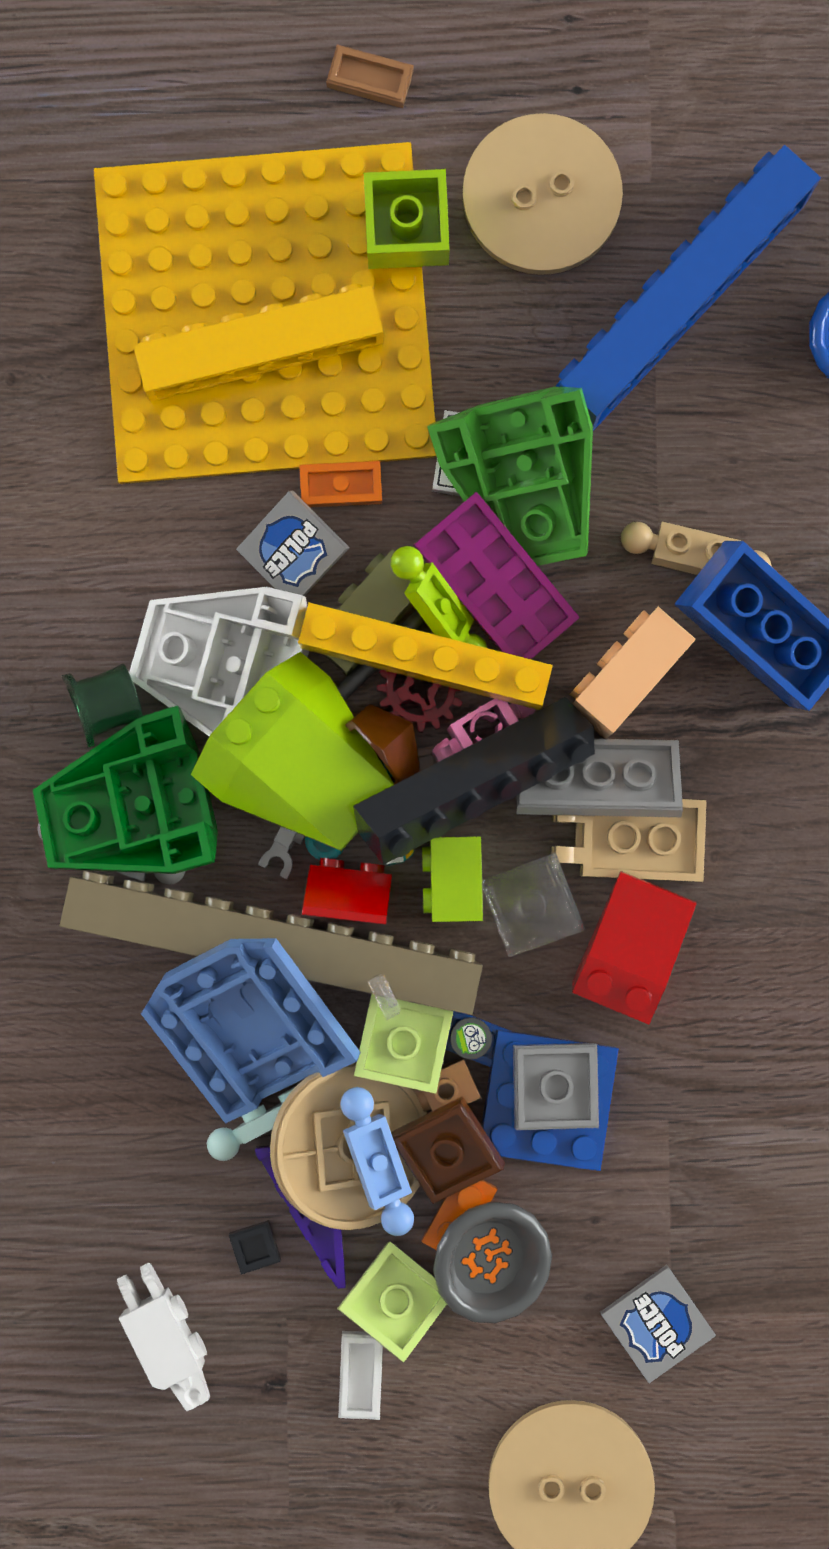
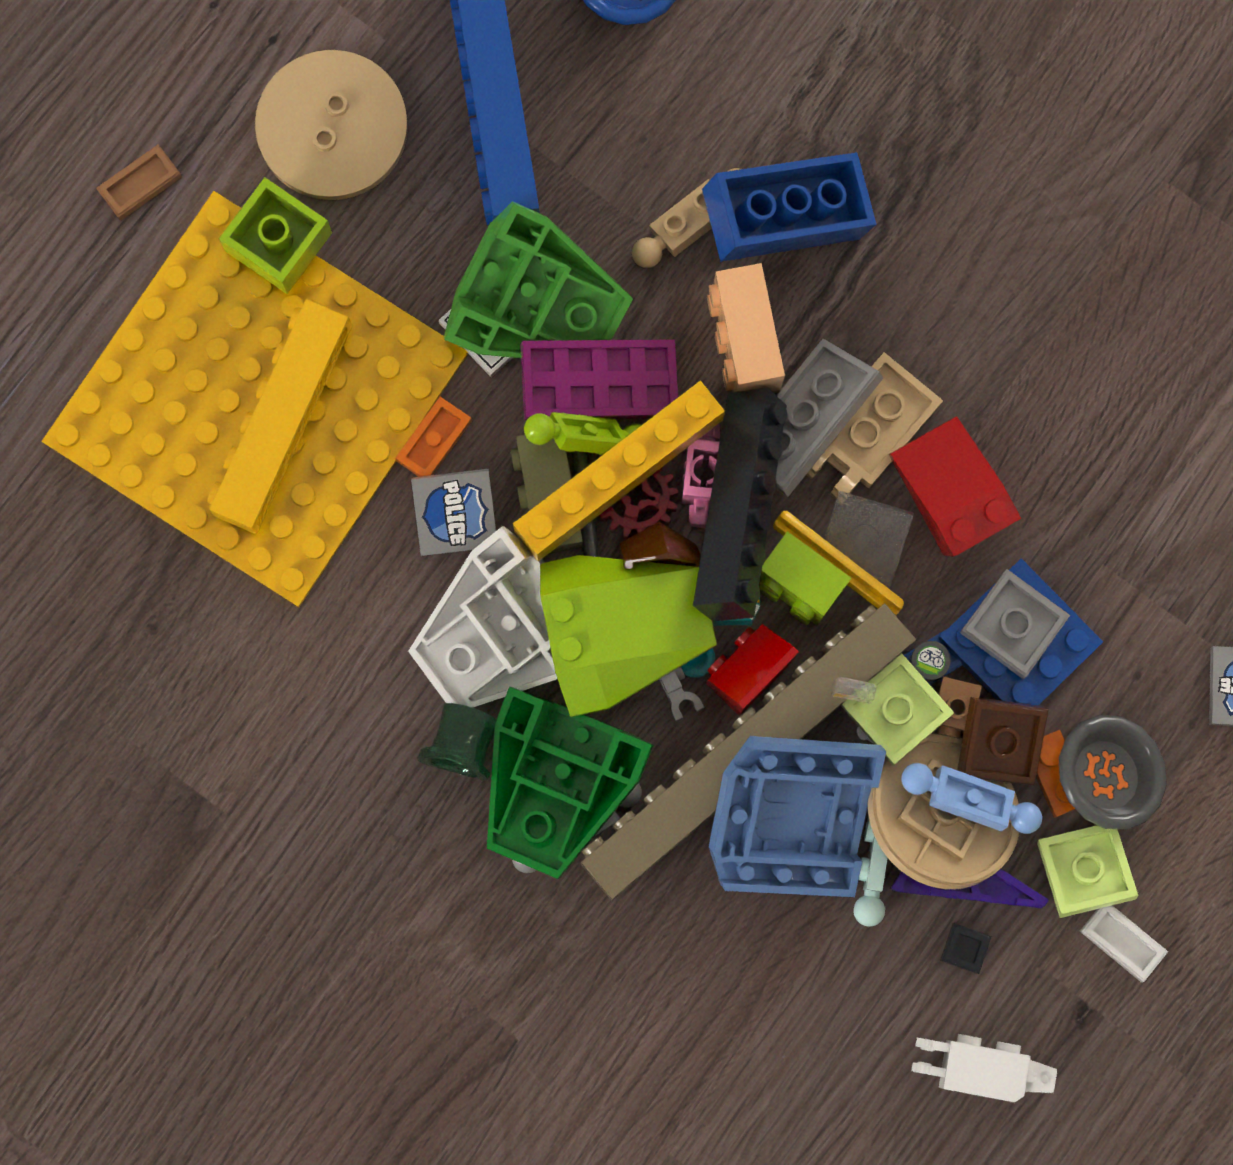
camera: 55 degrees left, 5 degrees down
(493, 898) = (860, 581): none -> yellow axle

